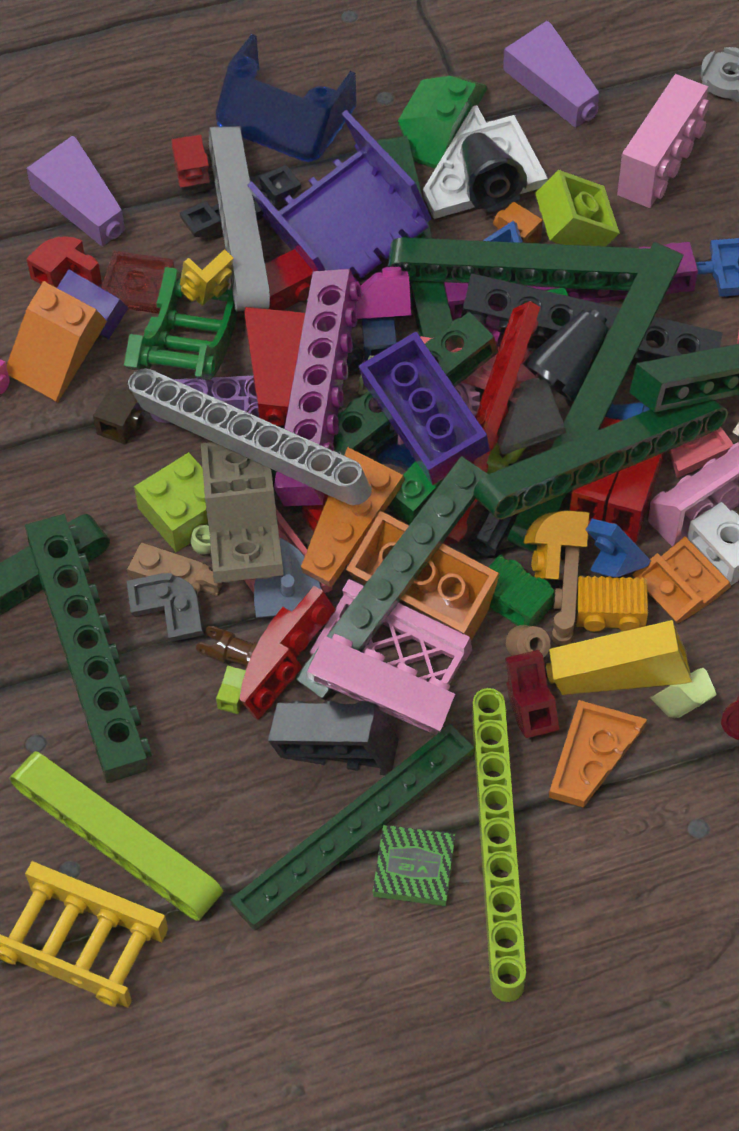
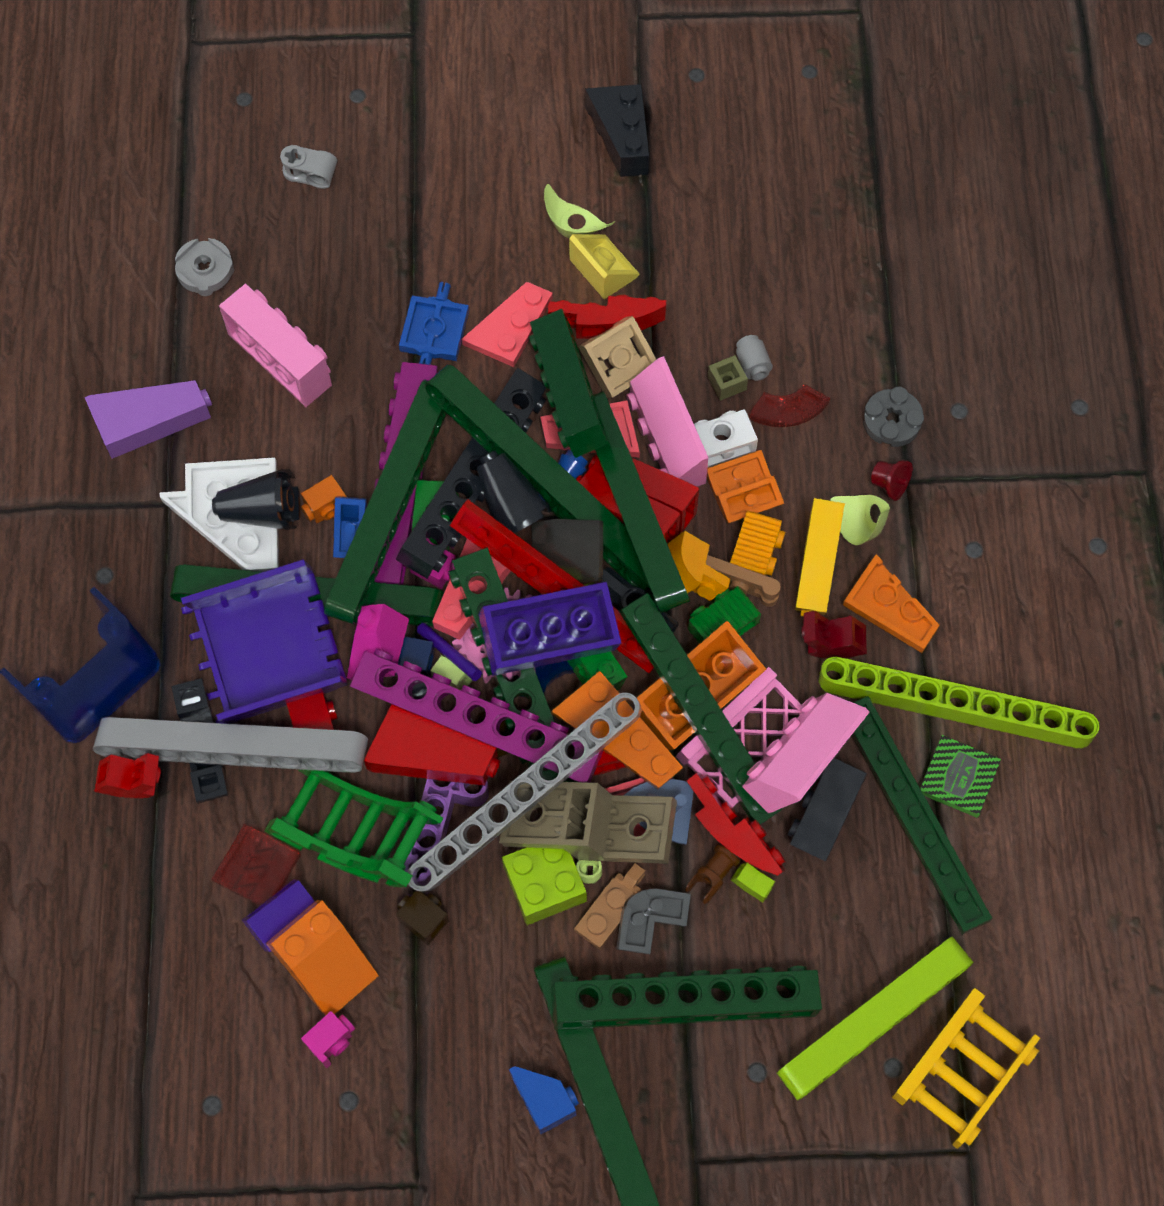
camera: 75 degrees left, 10 degrees up
(59, 255) = (207, 933): red brick -> none
(77, 191) = (123, 896): medium lavender slope -> none
(205, 283) = (313, 786): yellow bracket -> none
(437, 114) = (155, 529): green wedge -> none
(527, 639) = (781, 623): medium nougat brick -> none
(576, 211) = (336, 443): lime brick -> none
(618, 552) = (718, 528): blue slope -> none

